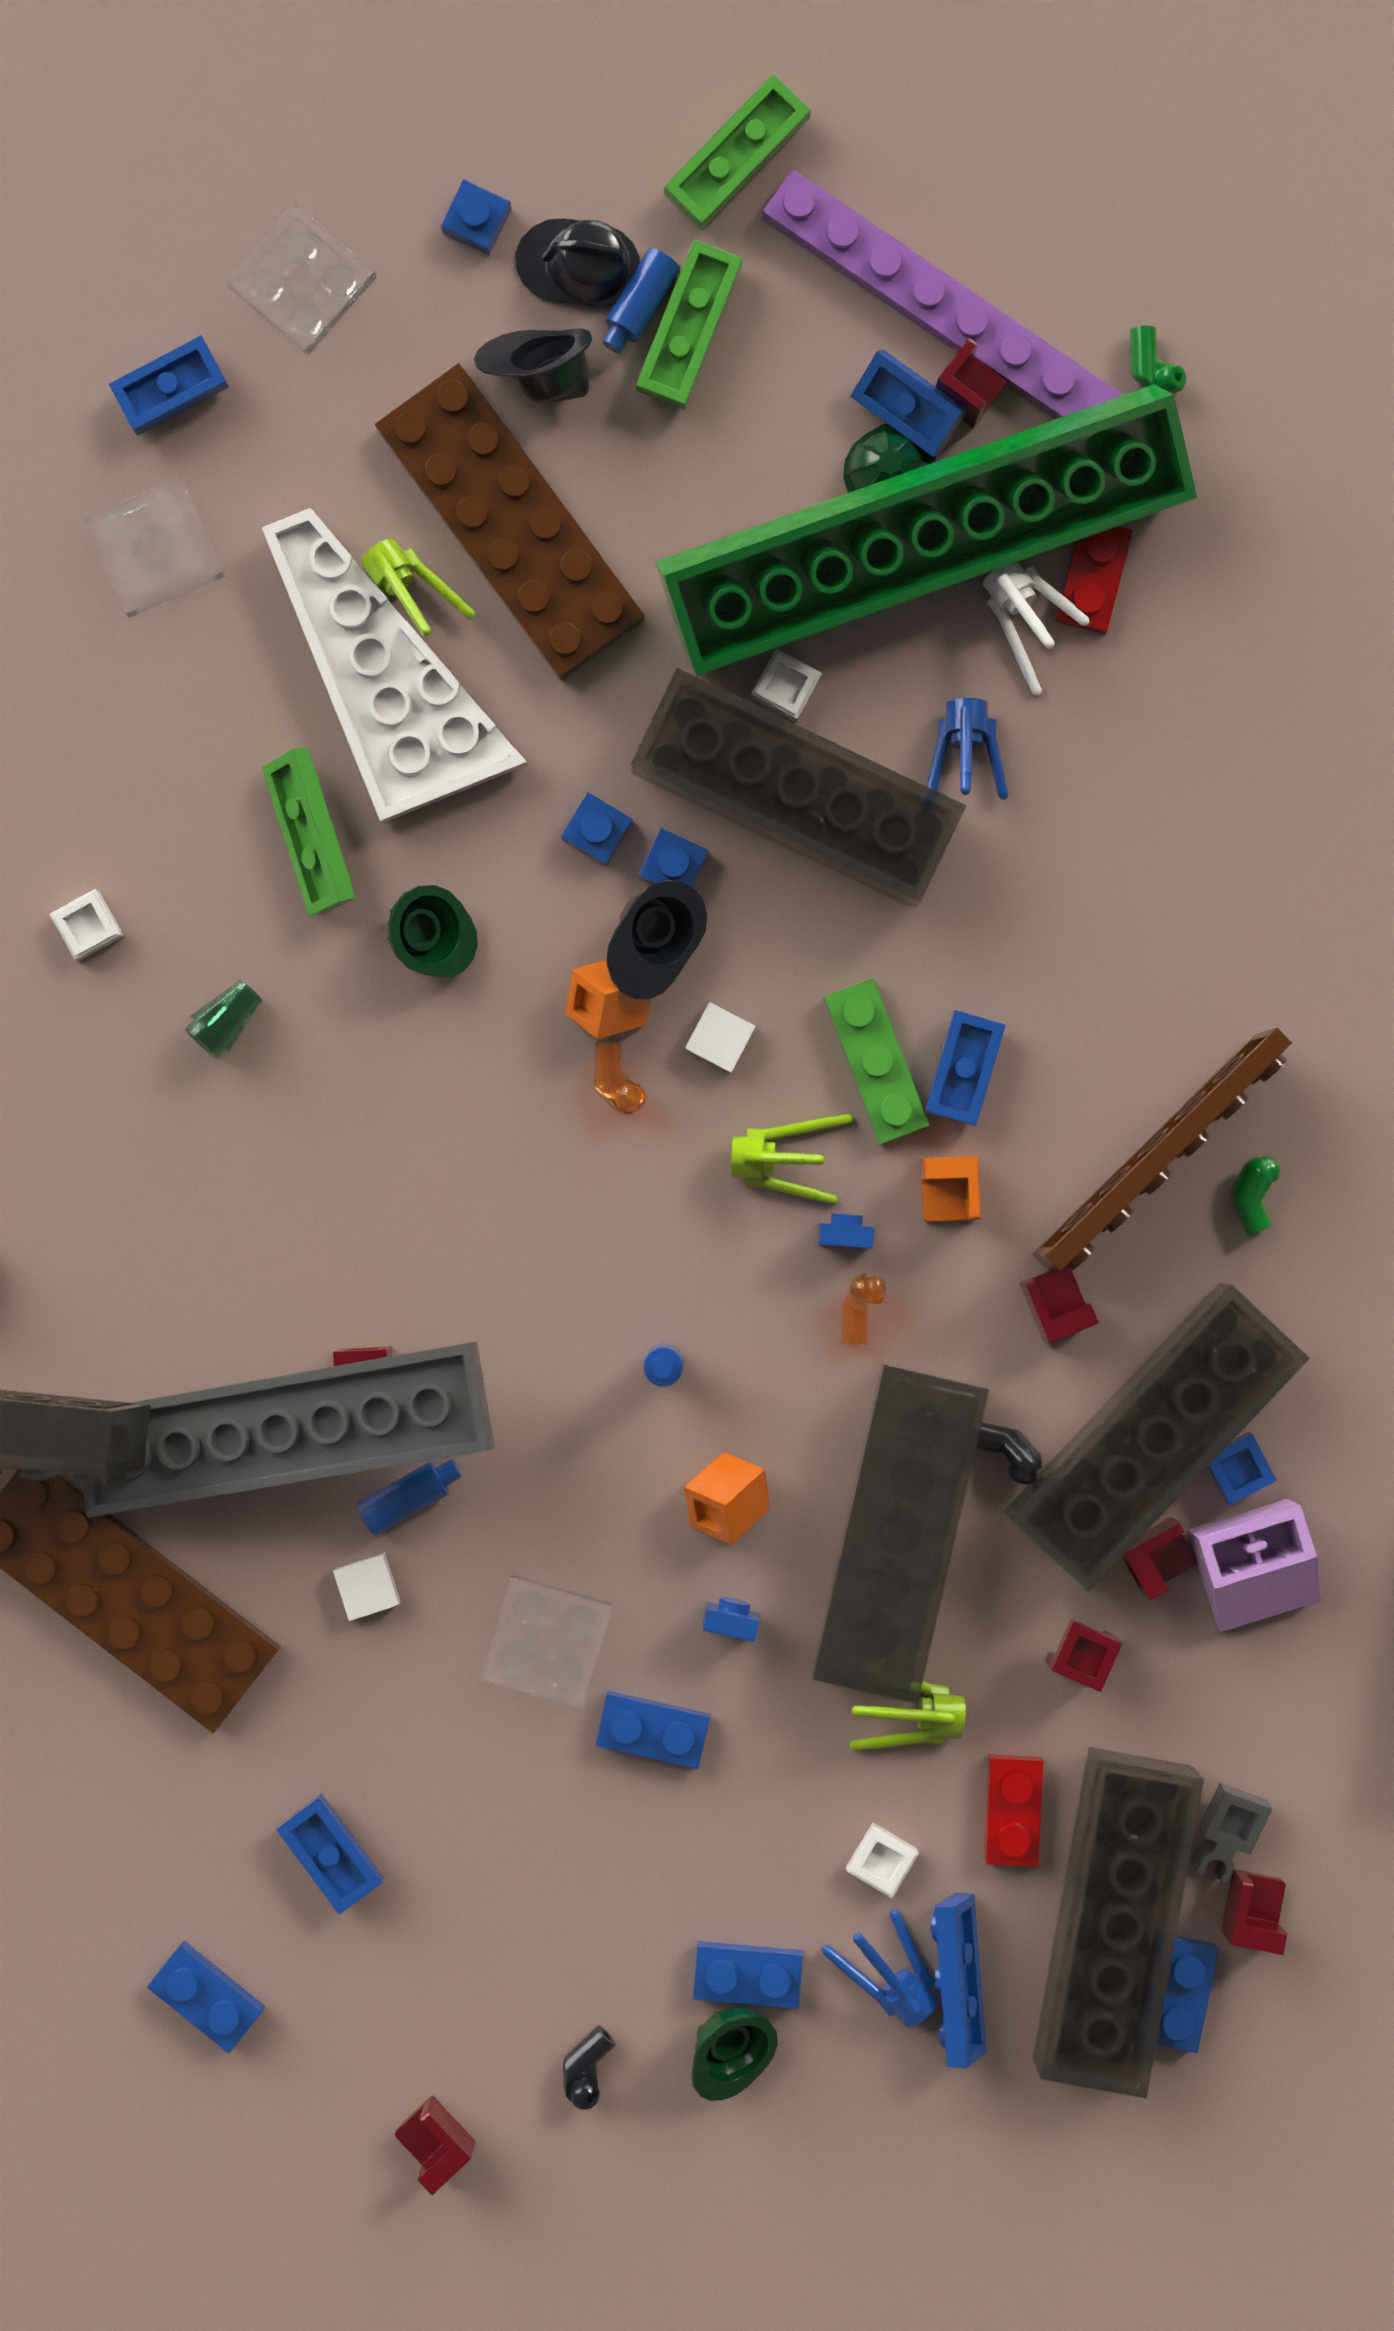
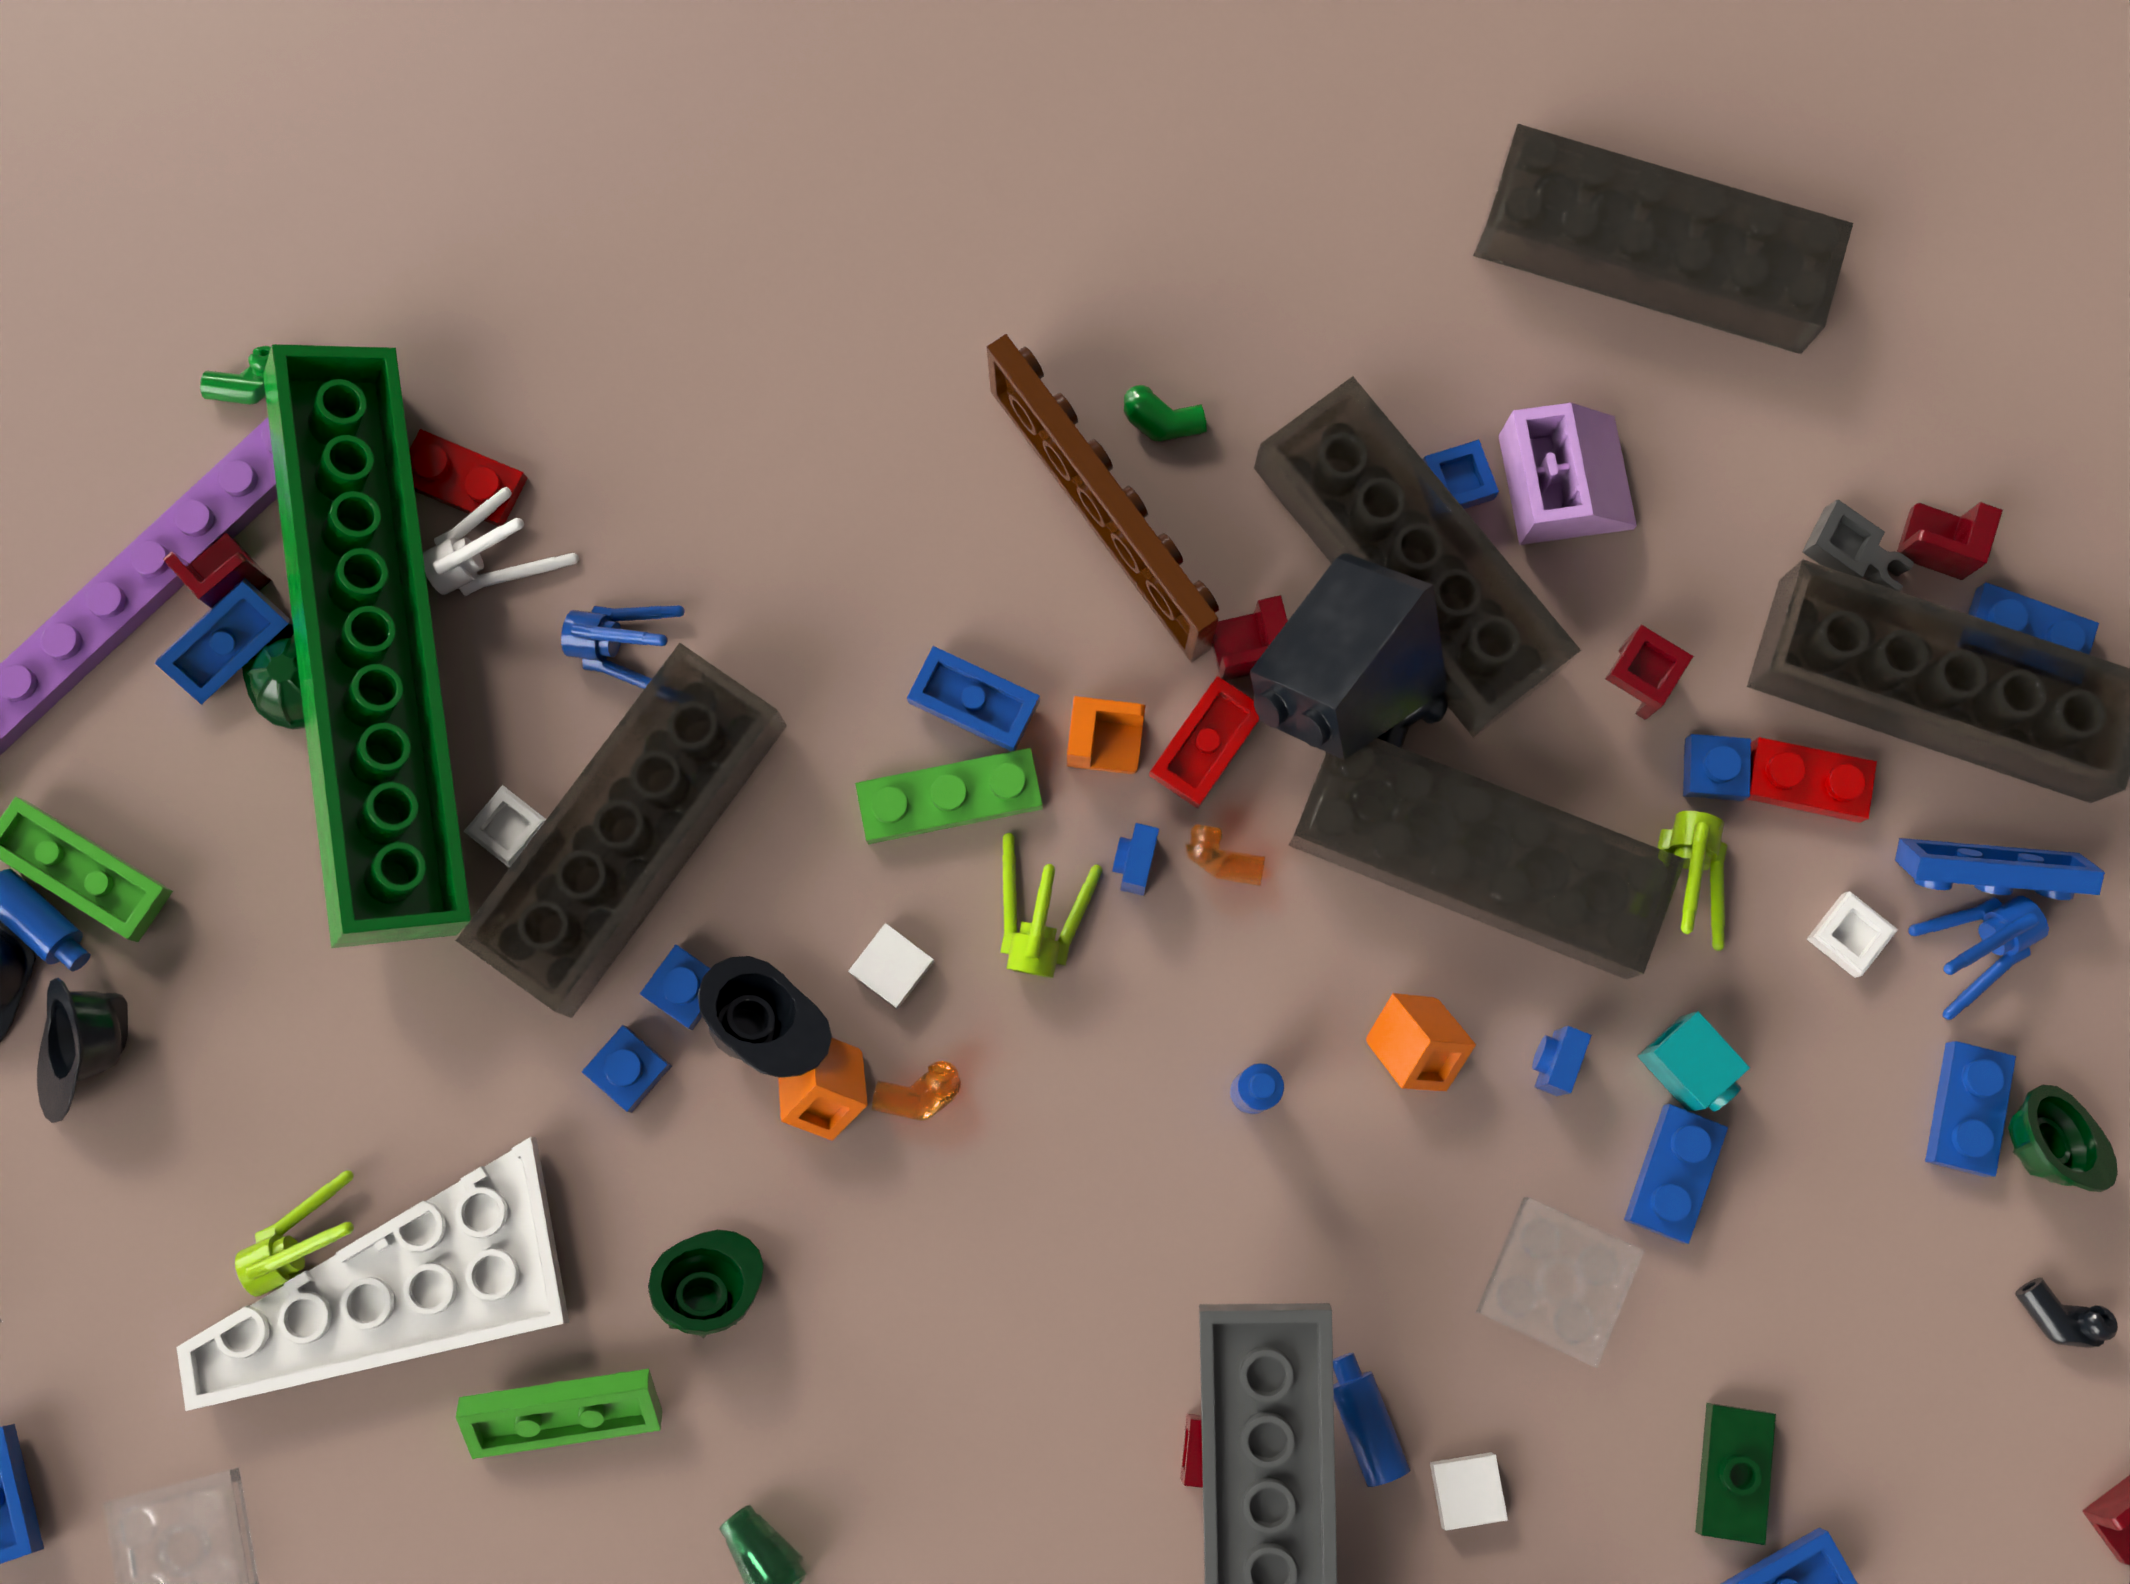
camera: 85 degrees left, 10 degrees down
(416, 1804) = (1735, 1473): none -> dark green plate
(509, 521) = (249, 1113): reddish brown plate -> none
(746, 1734) = (1695, 1064): none -> teal brick
(959, 1278) = (1206, 742): none -> red plate
(1011, 1728) = (1717, 767): none -> blue plate
(1045, 1392) = (1352, 658): none -> black slope
(1159, 1557) = (1550, 576): dark red panel -> none

